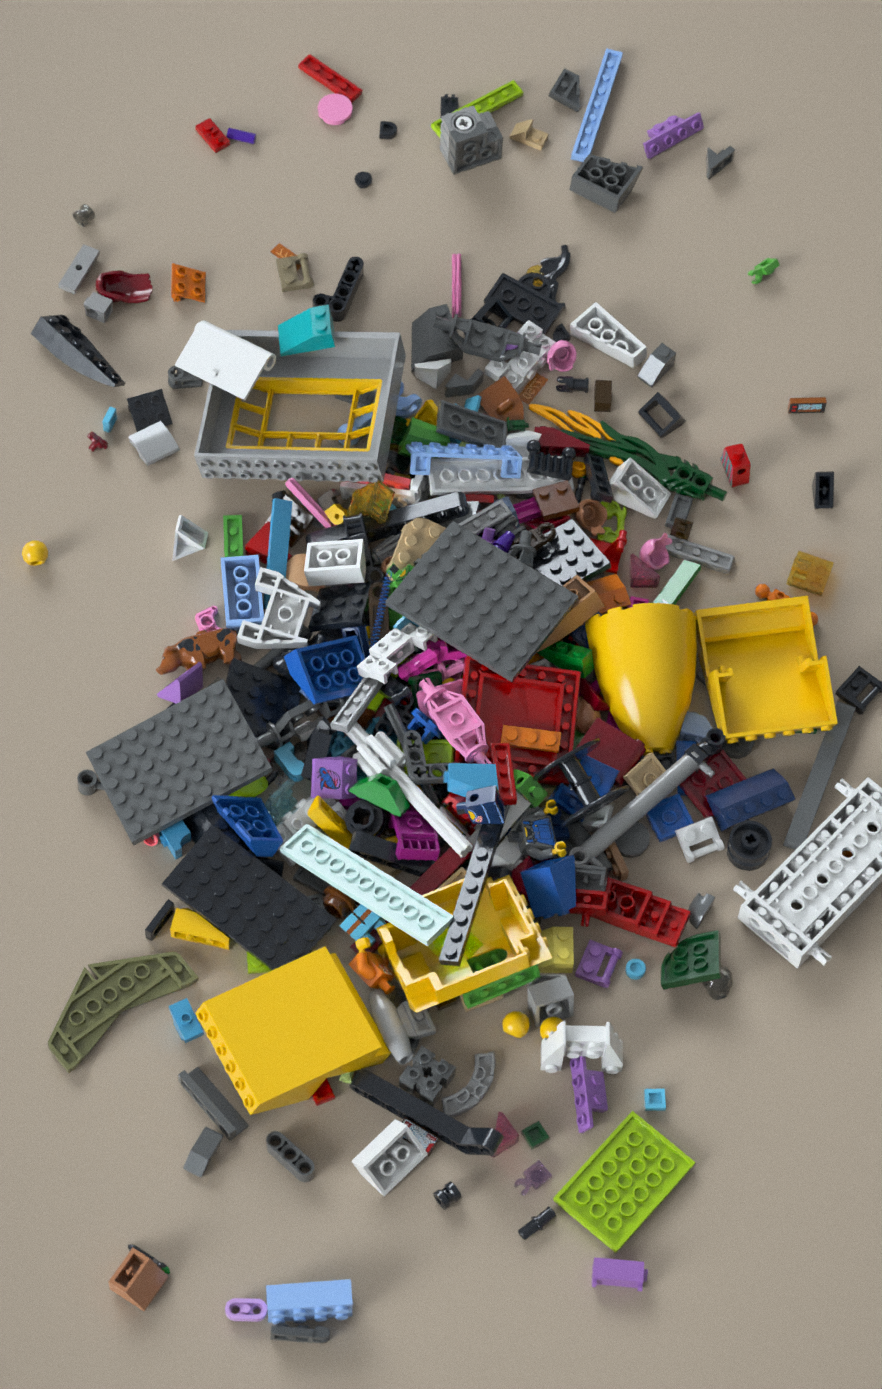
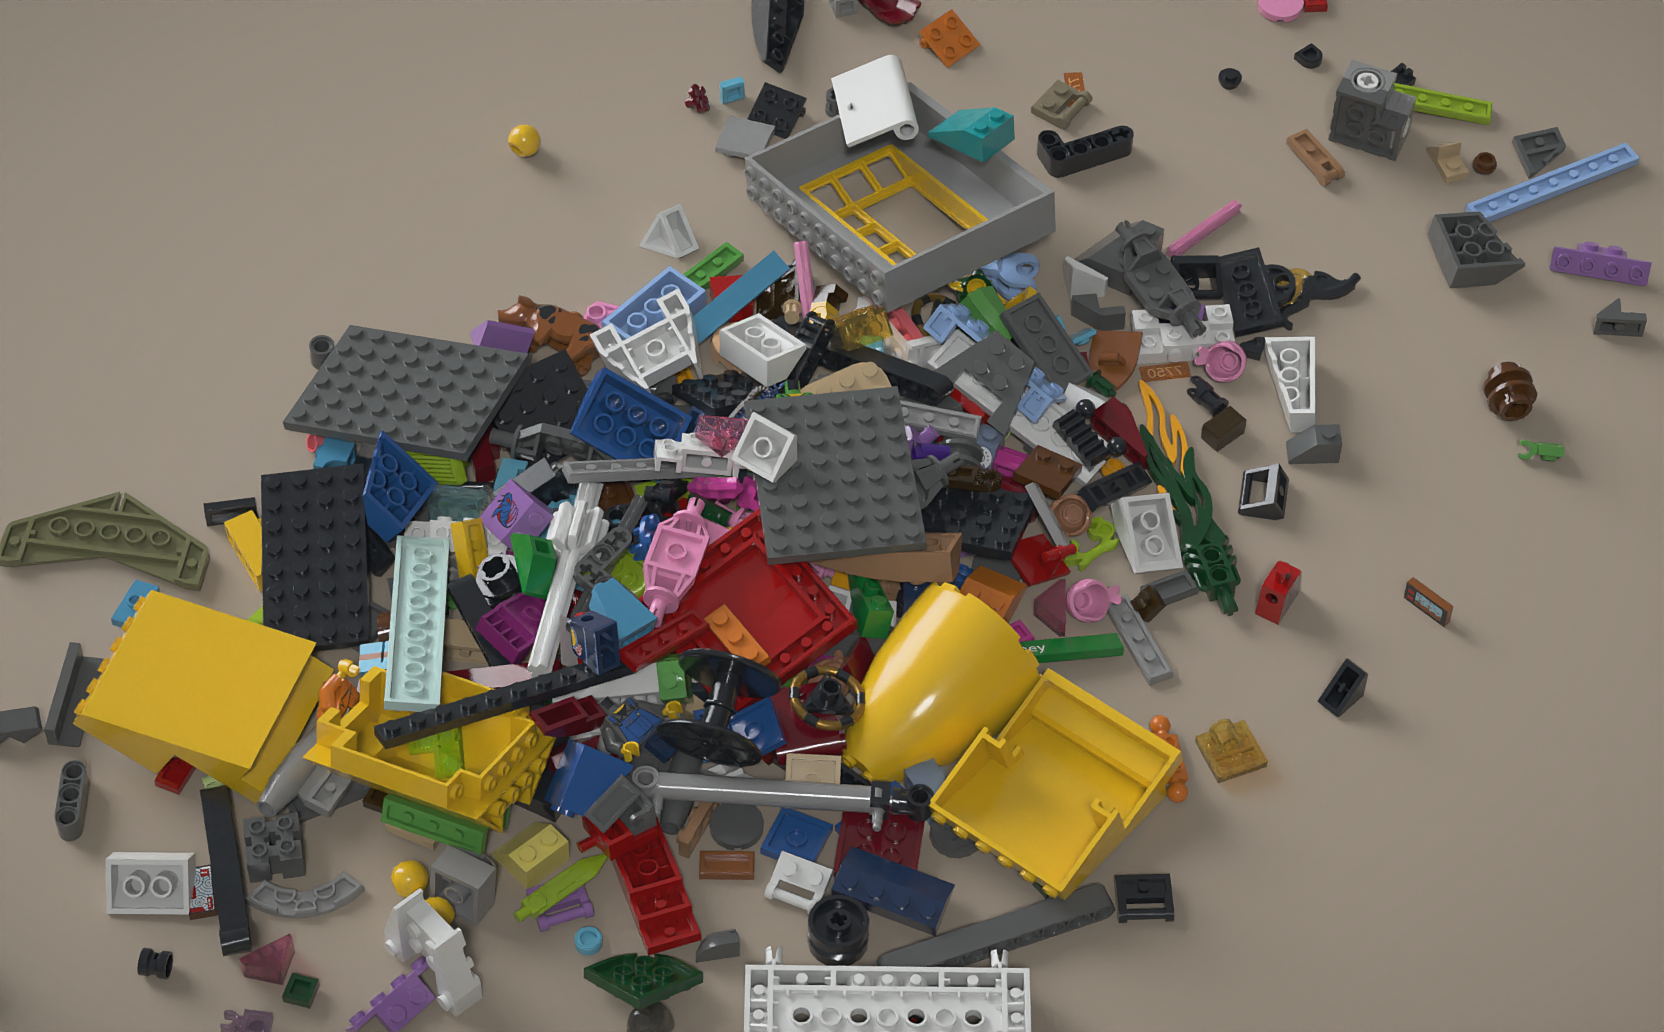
camera: 50 degrees right, 10 degrees down
(314, 525) = (792, 309): none -> tan piece
(397, 631) = (720, 433): none -> clear pink slope
(442, 618) = (766, 448): none -> white slope
(463, 191) = (1315, 157): none -> medium nougat plate
(480, 461) = (998, 367): none -> dark grey wing
(510, 859) = (569, 717): none -> dark red slope
(549, 121) = (1485, 163): none -> reddish brown plate
(584, 885) = (612, 803): none -> dark grey tile
(590, 526) = (1047, 514): none -> light grey tile
(594, 954) = (560, 887): none -> lime piece
(611, 727) = (827, 698): none -> black piece
(651, 864) = (727, 865): none -> dark orange tile
(719, 250) = (1510, 391): none -> reddish brown piece

